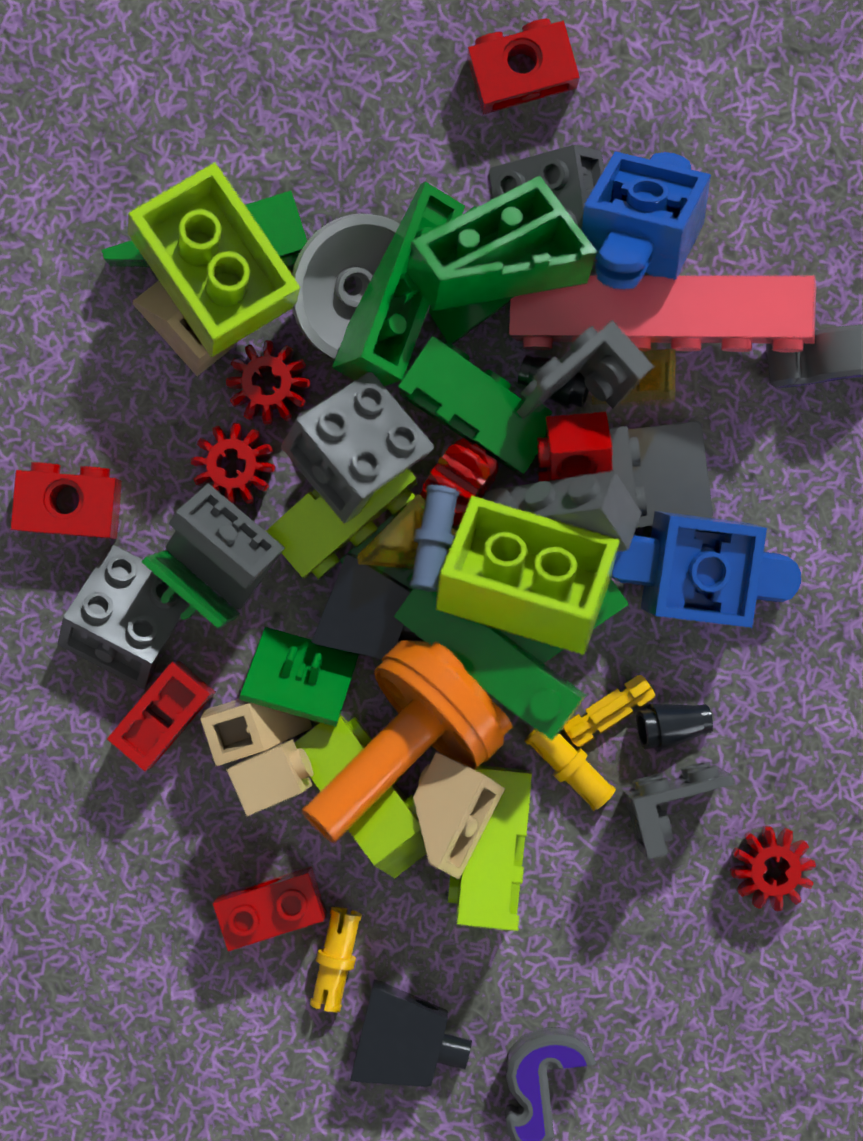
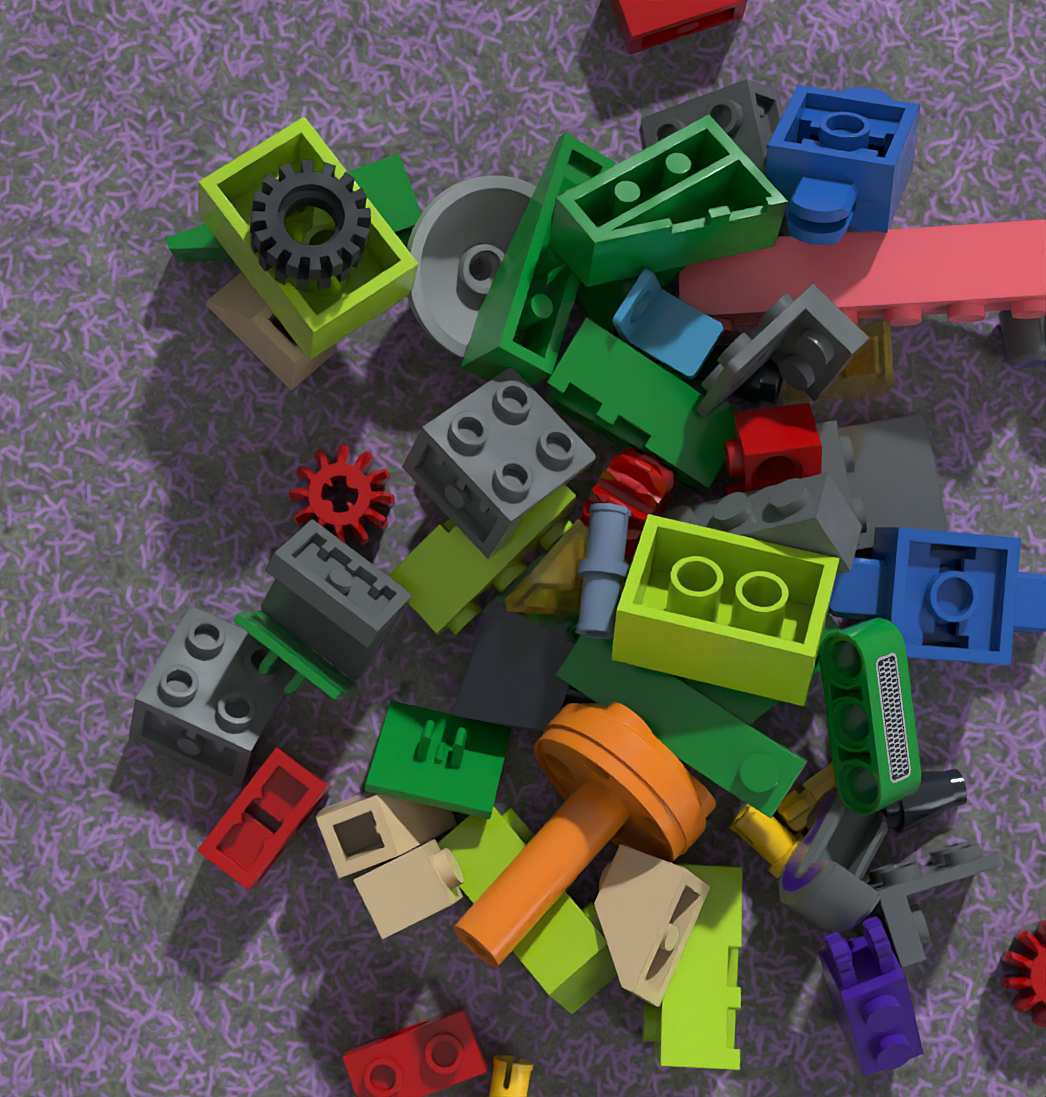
camera: 10 degrees left, 5 degrees down
(37, 508) = (96, 546): red brick -> none
(218, 224) = (312, 190): none -> black tyre
(255, 393) = (362, 406): red gear -> none
(497, 344) = (666, 326): none -> dark azure bracket
(601, 772) = (828, 866): none -> dark grey animal
(625, 881) = (871, 998): none -> dark purple hinge
(638, 662) = (870, 715): none -> green beam

